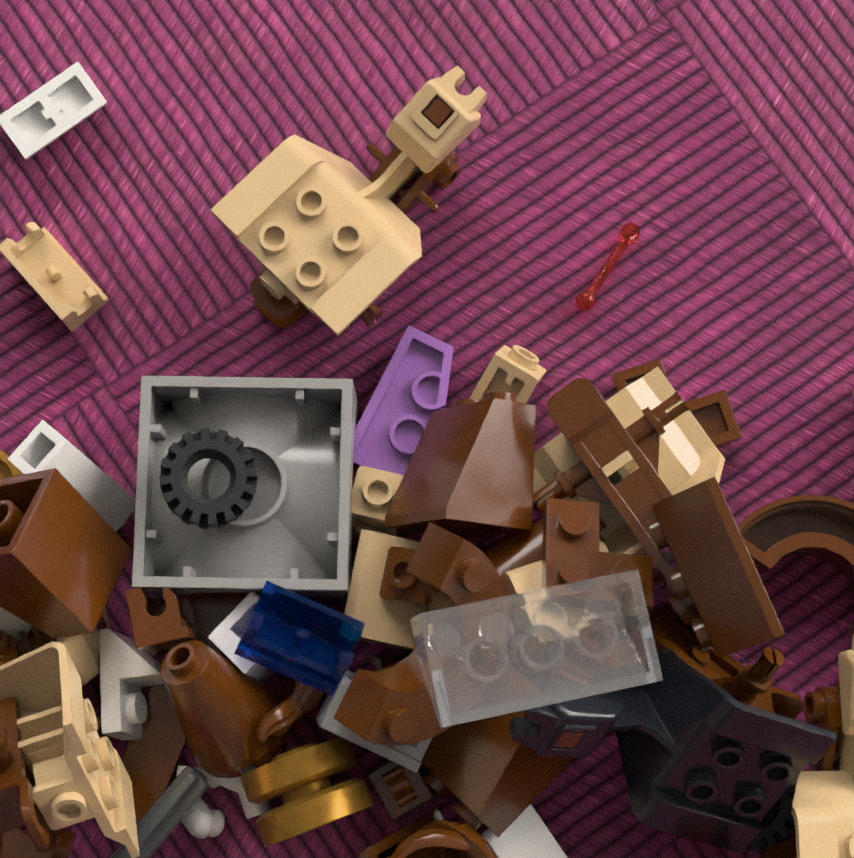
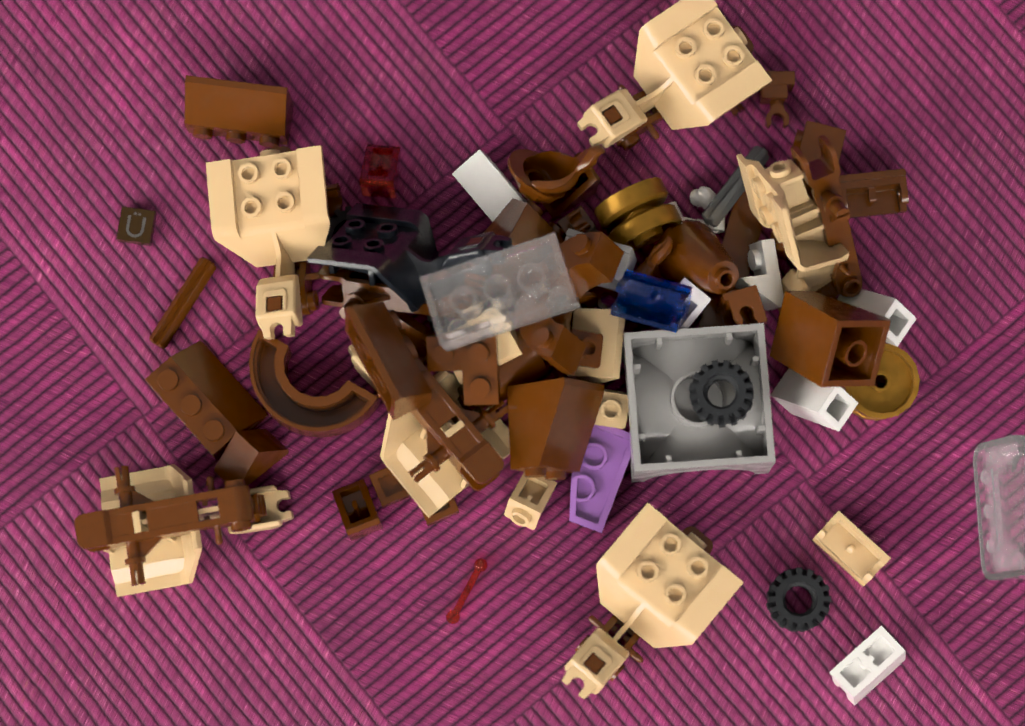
camera: 175 degrees right, 0 degrees up
(131, 184) = (798, 578): none -> black tyre
(761, 387) = (357, 510): none -> reddish brown slope

